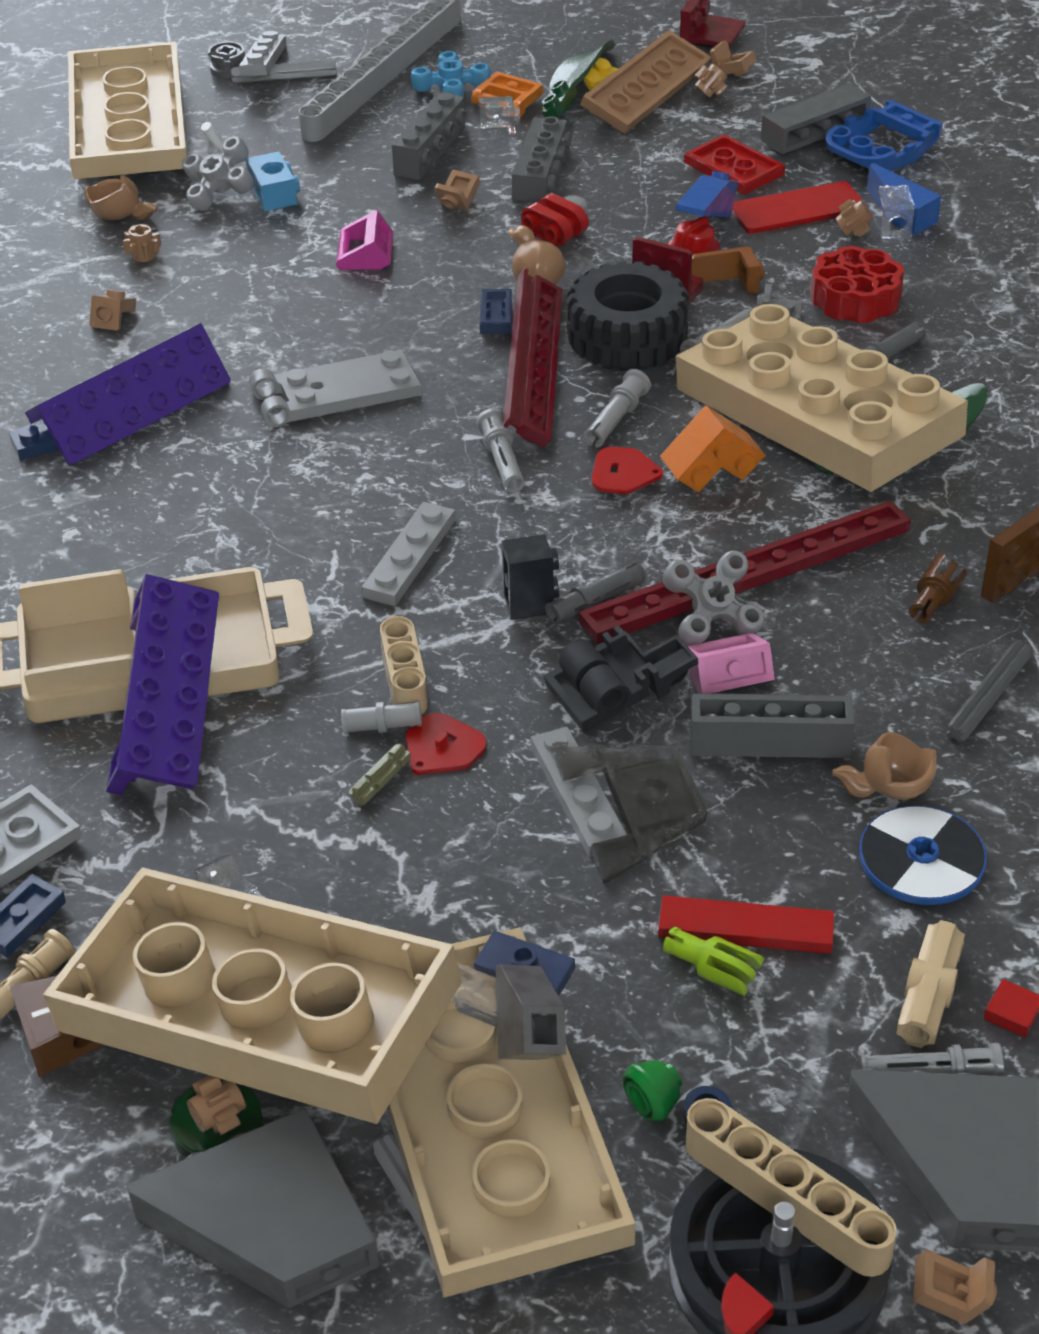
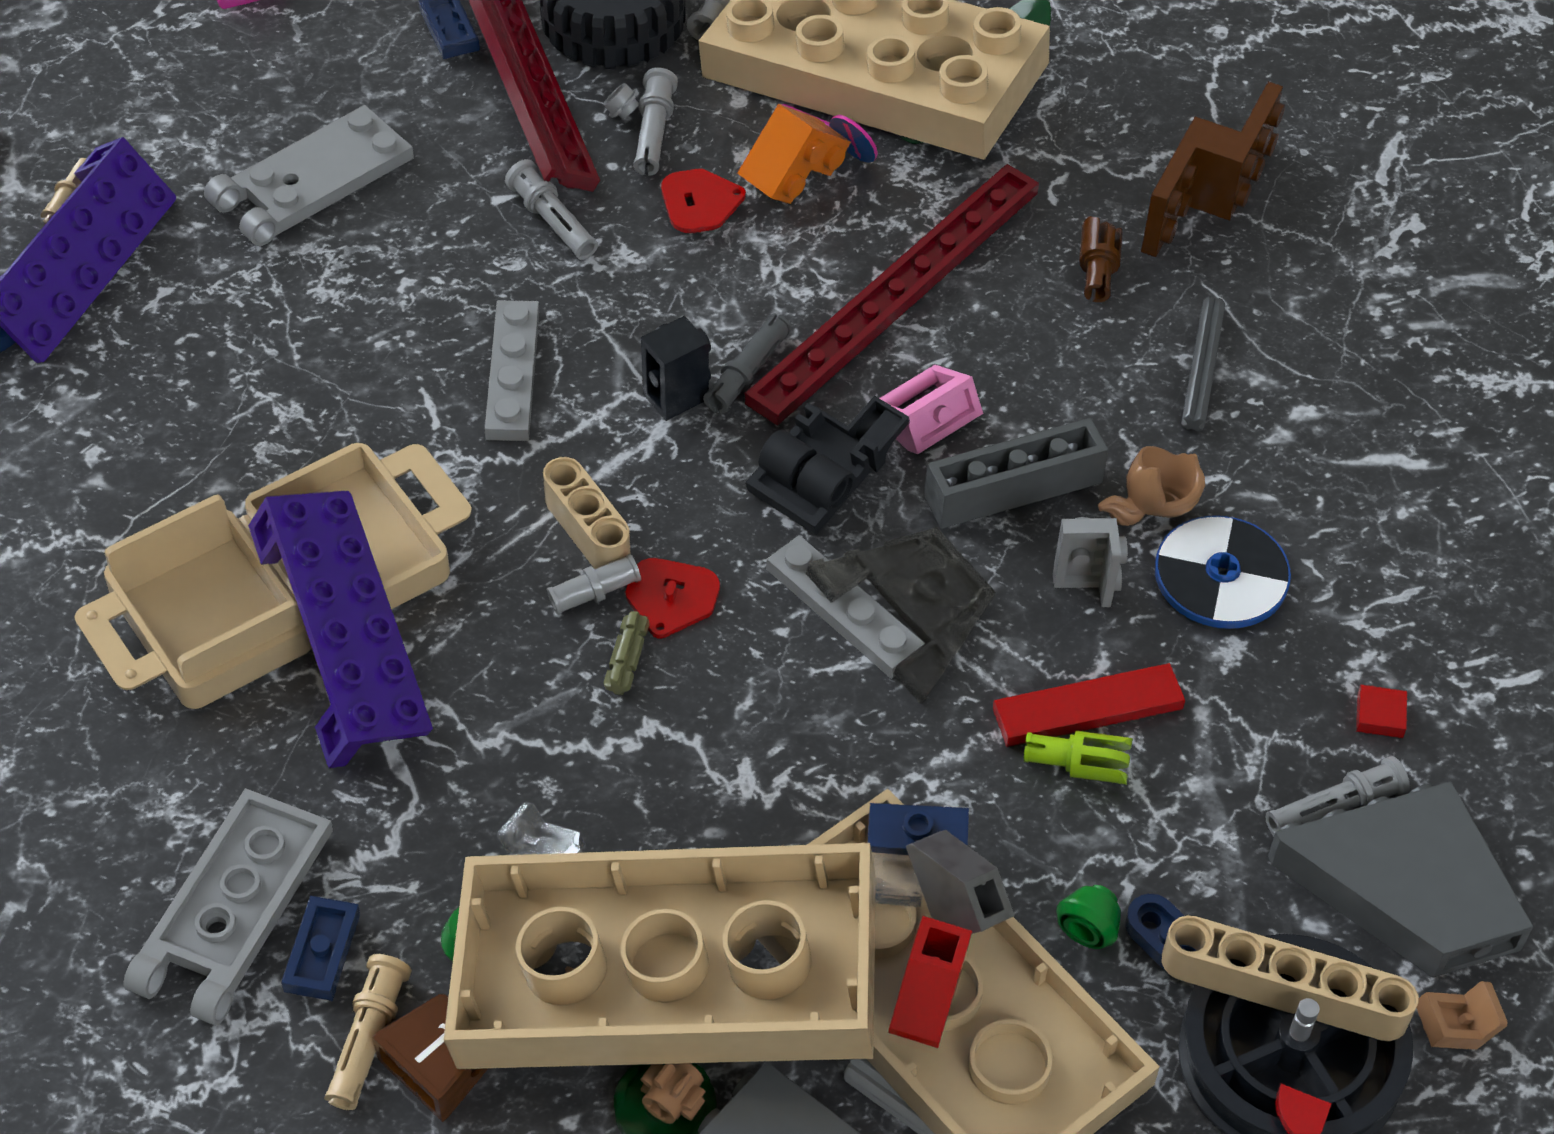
camera: 25 degrees left, 10 degrees up
(463, 1080) = (930, 981): none -> red slope
(598, 389) = (621, 101): none -> light grey plate
(713, 597) = (884, 337): light grey gear -> none
(772, 459) = (861, 143): none -> blue piece
(798, 803) = (1090, 556): none -> light grey bracket
(930, 984) = (1298, 712): tan piece -> none

